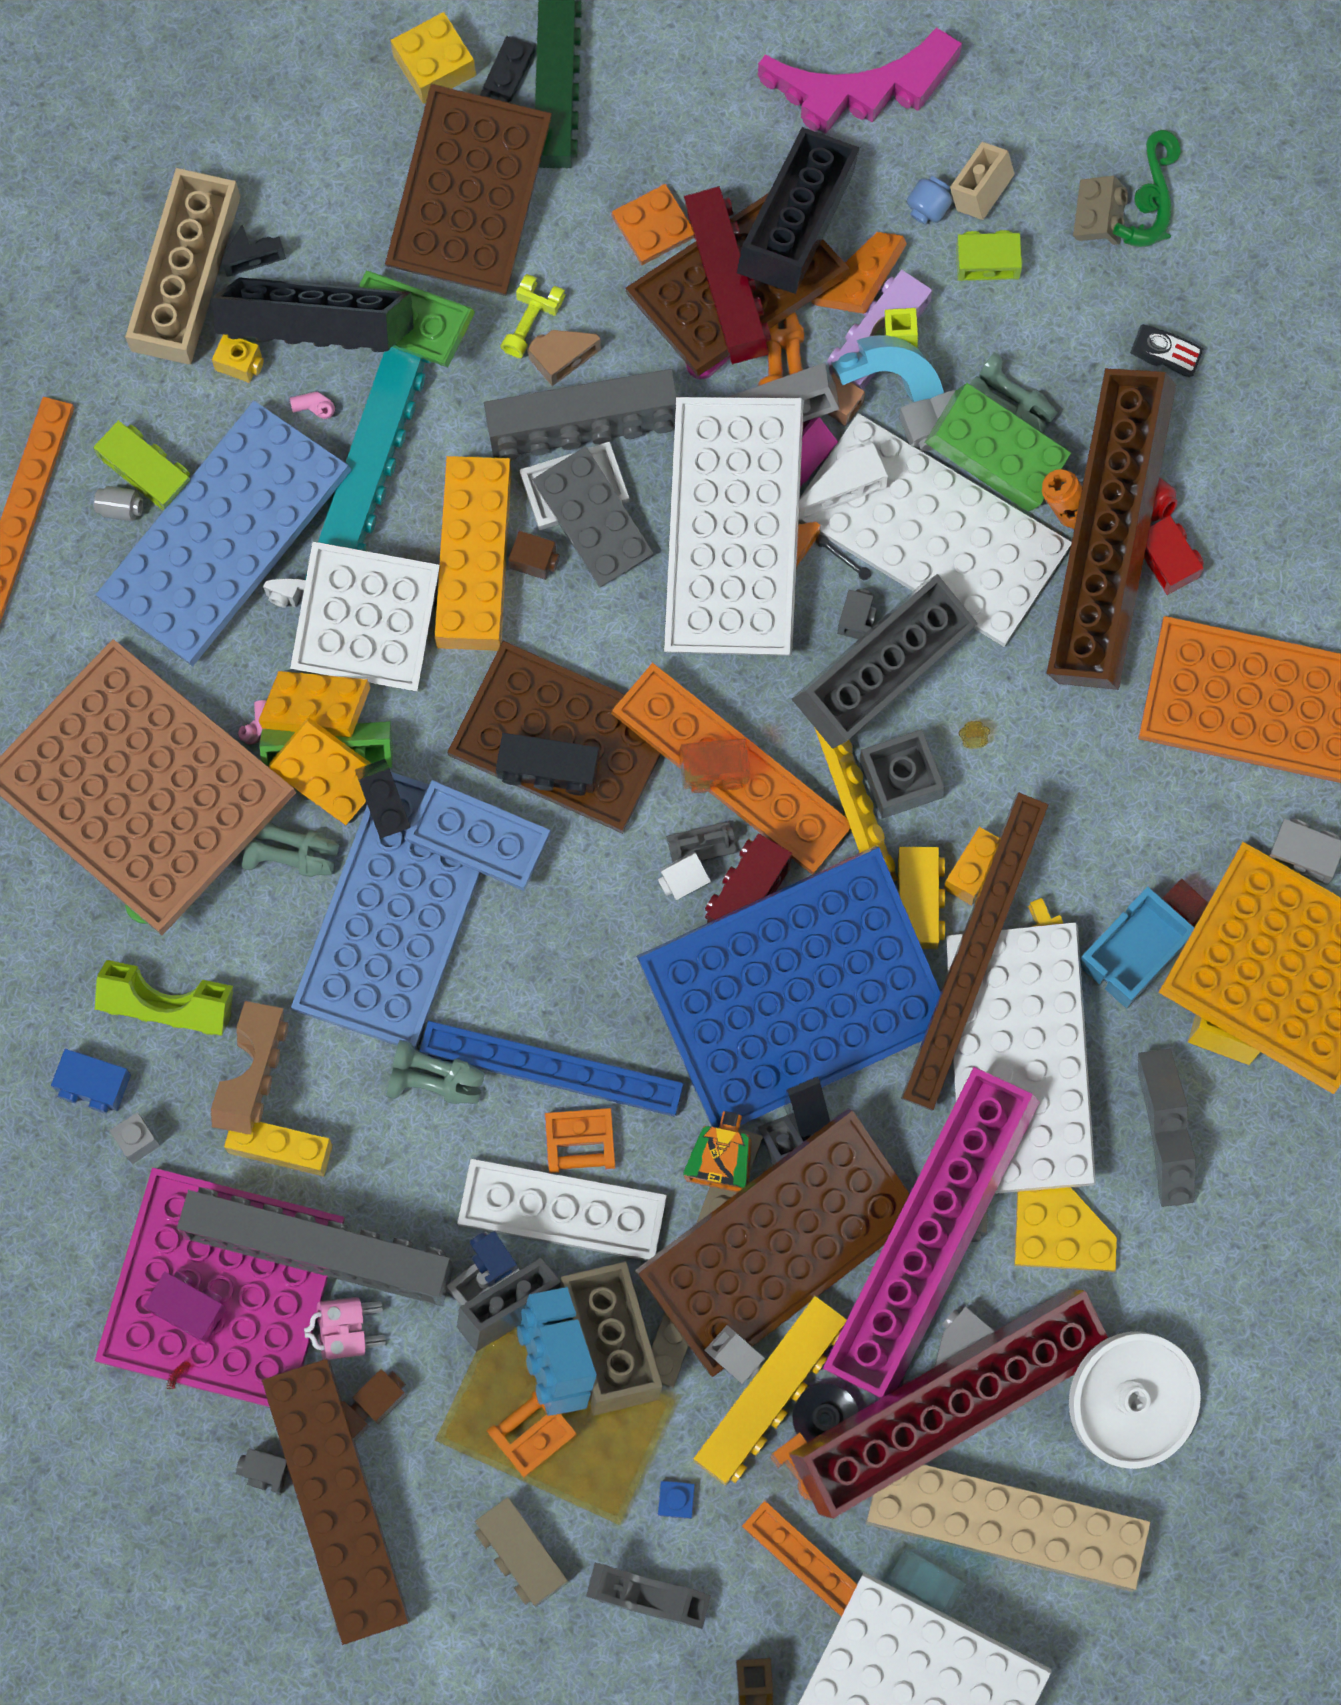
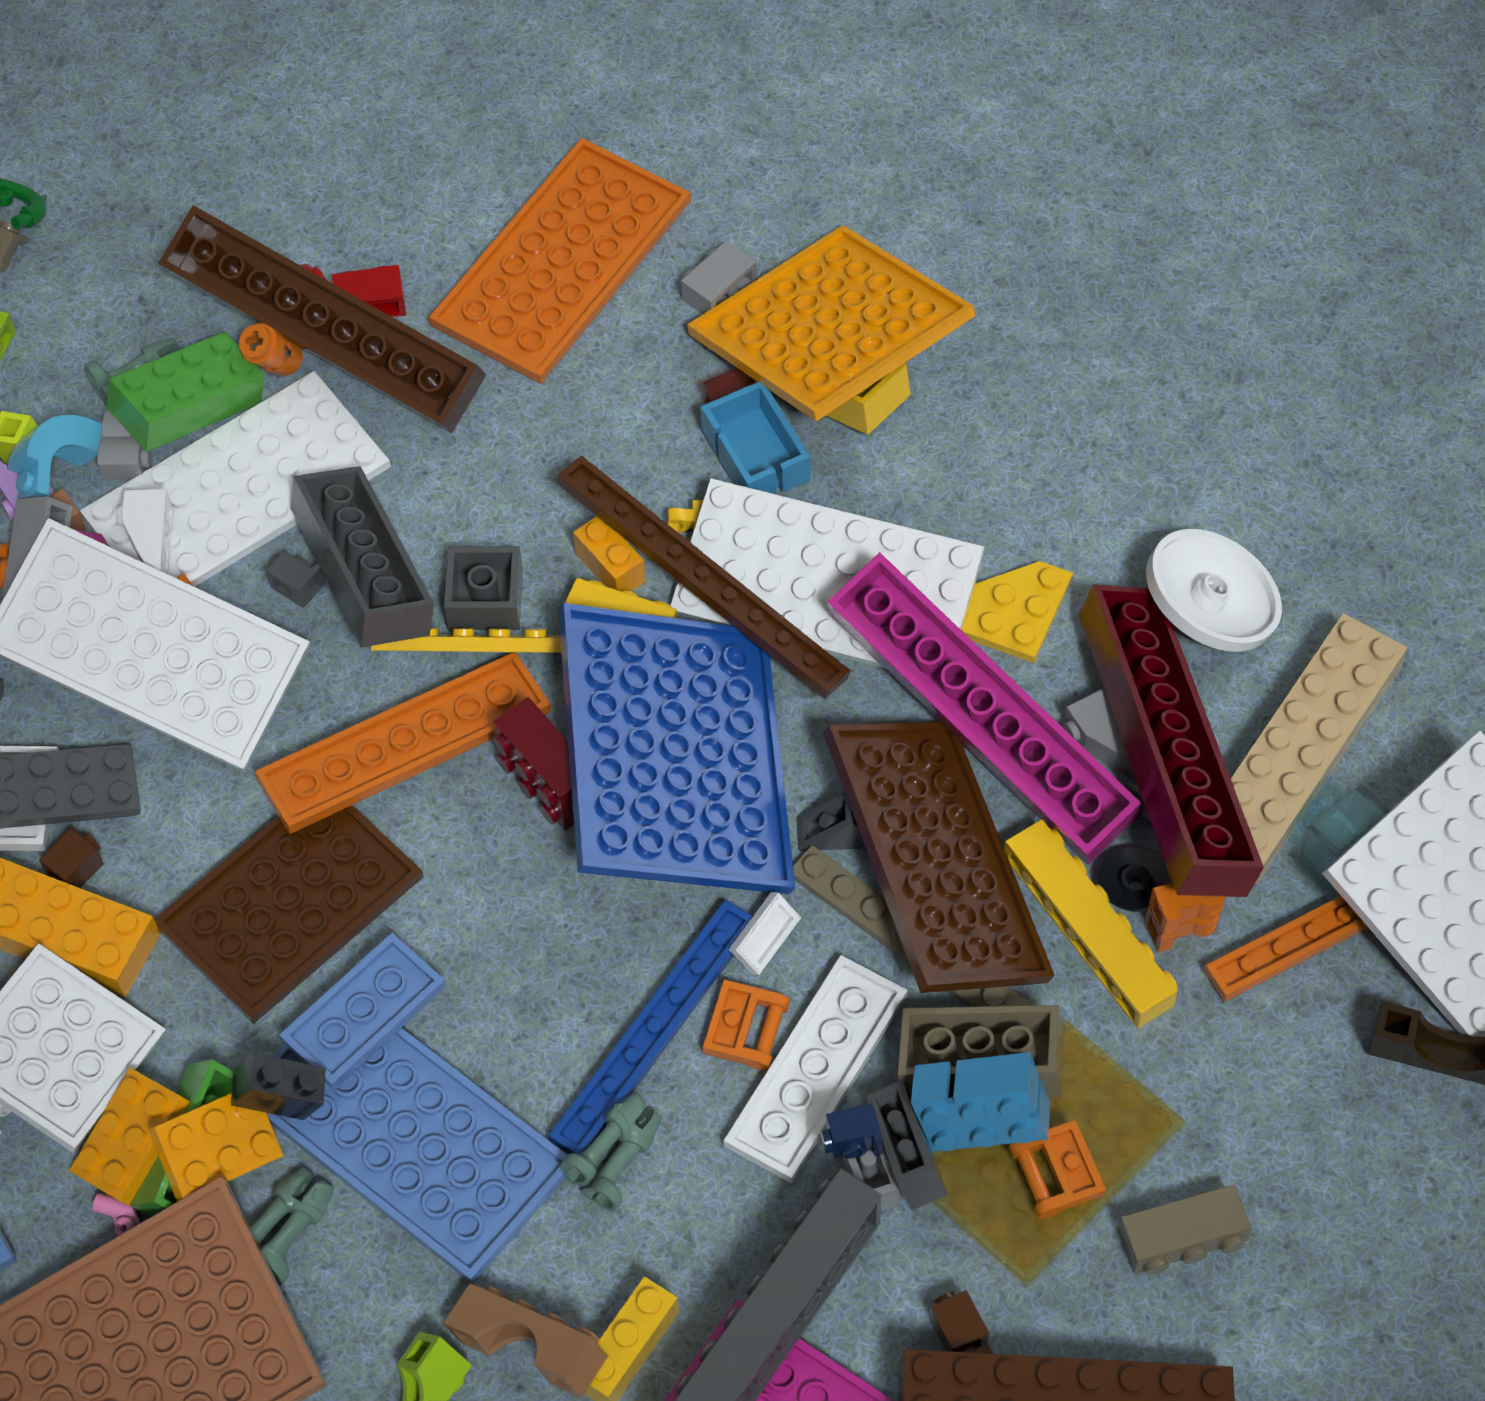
camera: 70 degrees left, 15 degrees down
(342, 1328) = (866, 1340): bright pink piece -> none
(547, 764) = (315, 913): black brick -> none
(648, 1596) = (1277, 1107): dark grey arch -> none
(665, 1126) = (765, 933): none -> white tile
(676, 1500) = (1174, 1056): blue plate -> none
(683, 876) = (499, 825): white brick -> none
(705, 842) = (470, 802): dark grey hinge -> none
(714, 765) = (396, 745): clear orange brick -> none
(721, 1156) = (824, 880): torso -> none
(735, 1355) = (1041, 936): light grey brick -> none
(807, 1107) = (805, 779): black slope -> none
(863, 573) = (250, 563): black hinge -> none
(974, 735) = (471, 517): clear yellow plate -> none
(1168, 349) = (156, 232): slope -> none
(1168, 1126) = (936, 467): dark grey arch -> none

